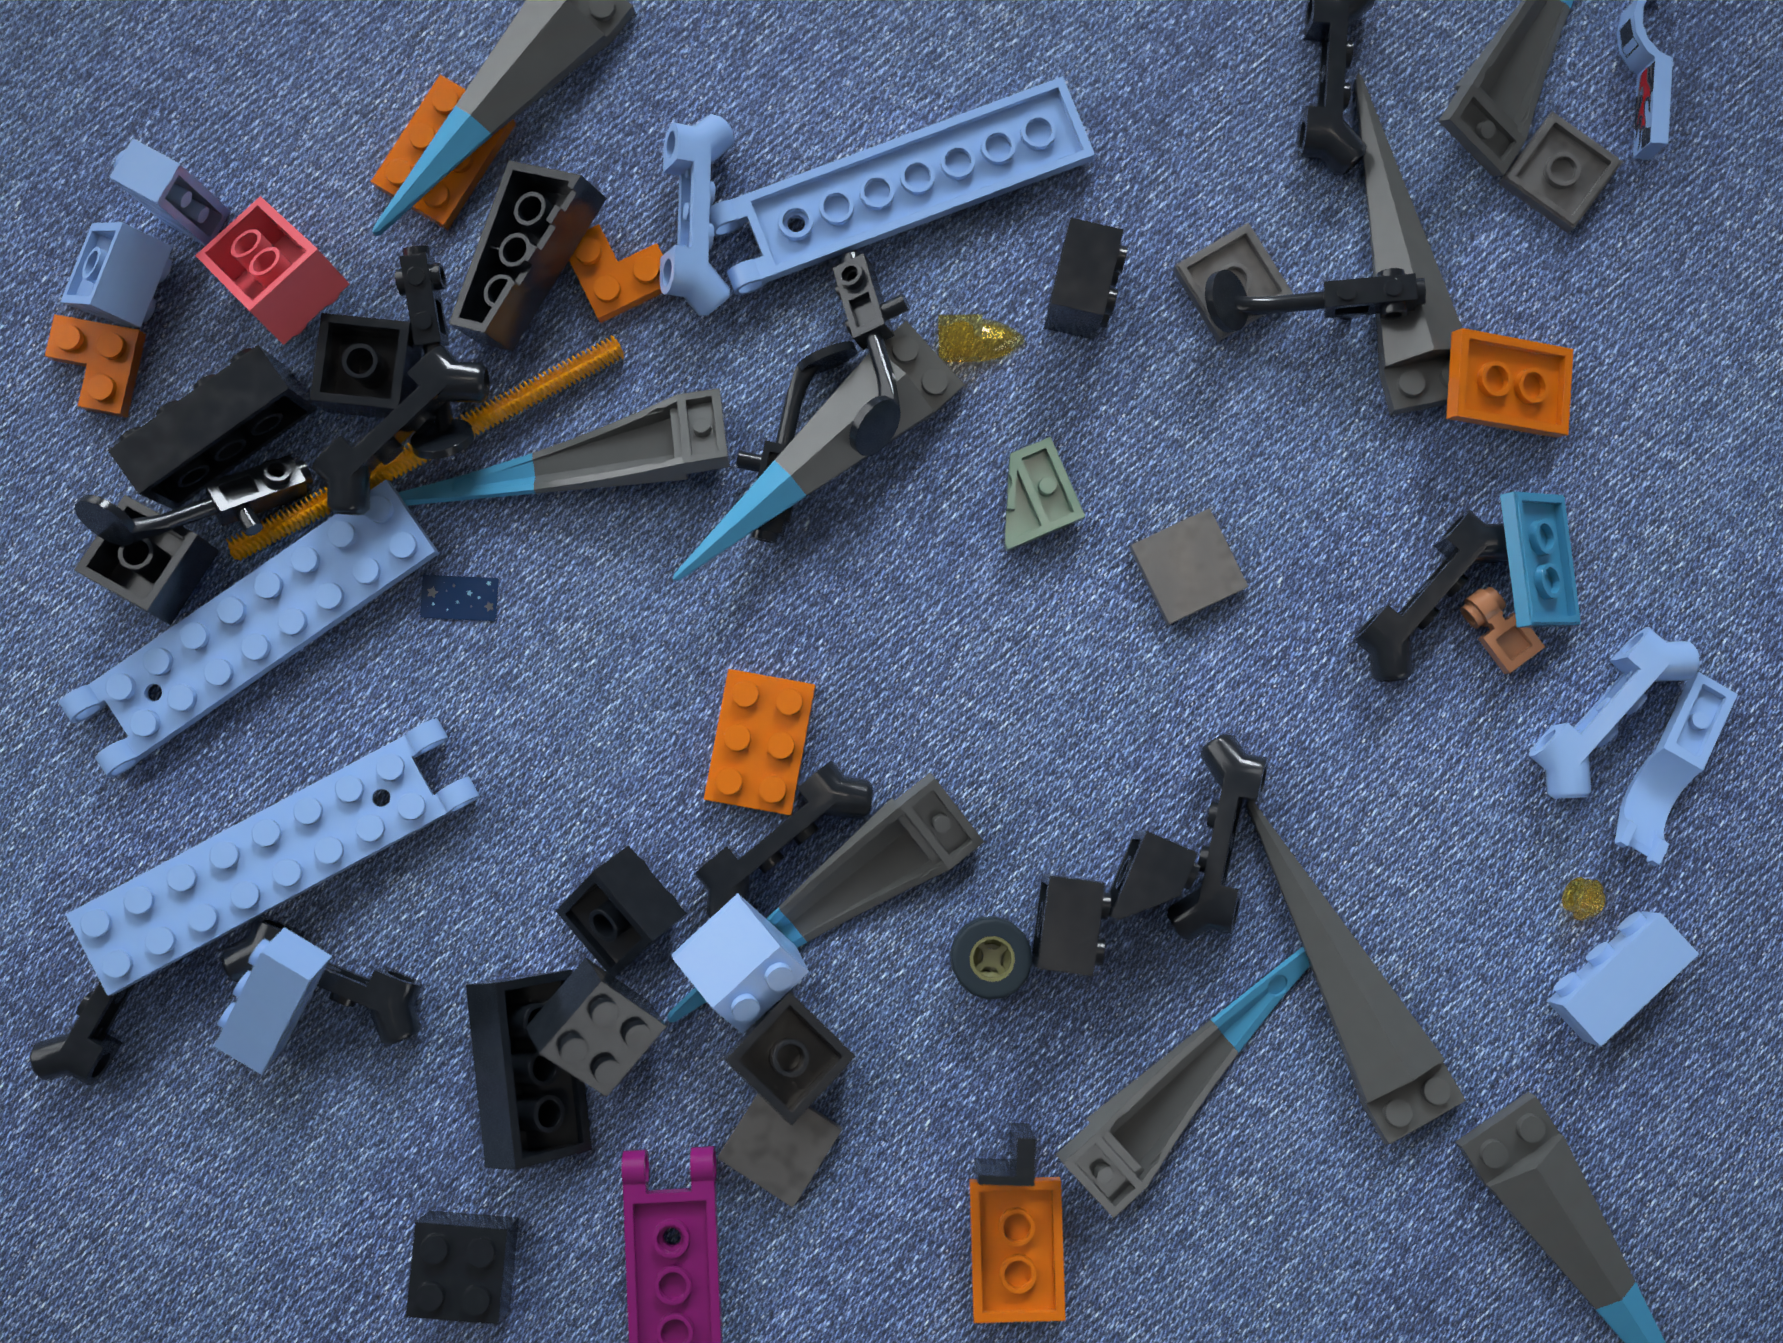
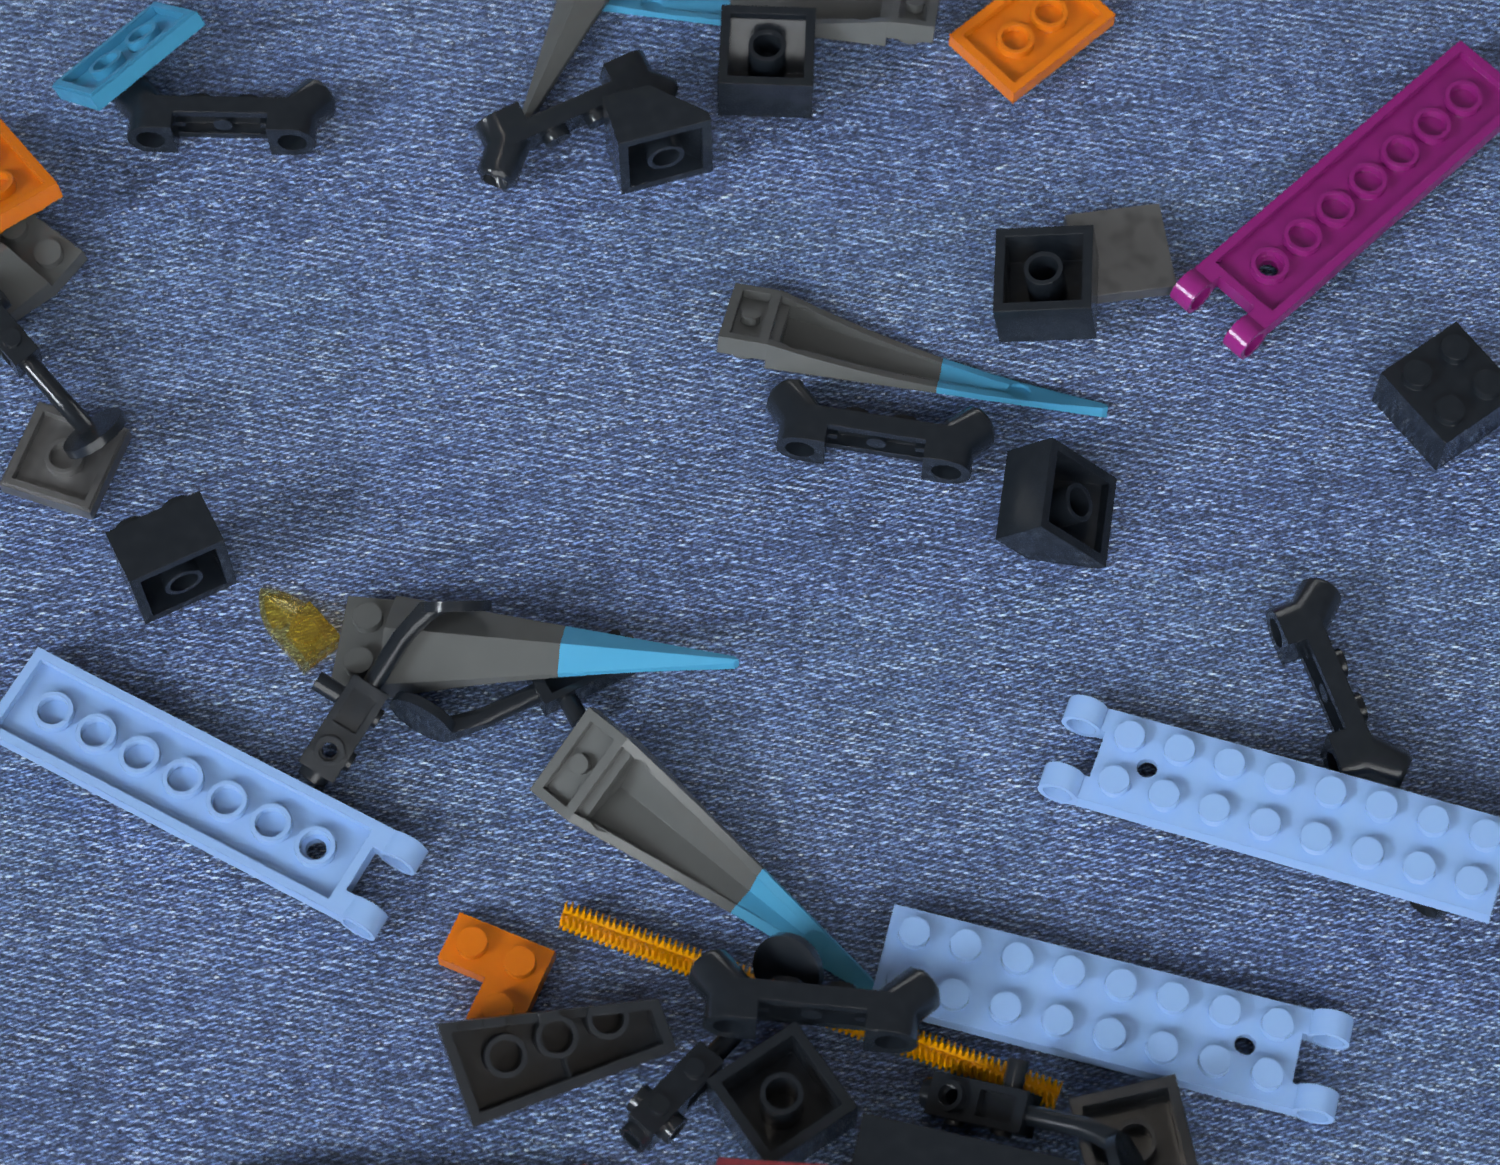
camera: 130 degrees left, 20 degrees down
(270, 999) = (1391, 696): light blue brick -> none
(459, 597) = (917, 868): dark blue sticker -> none
(525, 1101) = (1250, 476): black slope -> none
(595, 1027) = (1163, 437): black brick -> none
(686, 266) = (331, 979): light blue plate -> none
(740, 963) = (1007, 370): light blue slope -> none
(759, 742) = (812, 520): orange plate -> none
(1002, 967) = (824, 209): black wheel -> none
(1018, 1169) = (965, 65): black panel -> none
(1038, 495) = (399, 464): sand green wing -> none
(1069, 924) = (744, 165): black brick -> none
(1148, 1020) = (766, 61): none -> black slope
(1188, 566) = (359, 310): flat silver tile -> none
(1504, 641) = (212, 43): nougat plate -> none

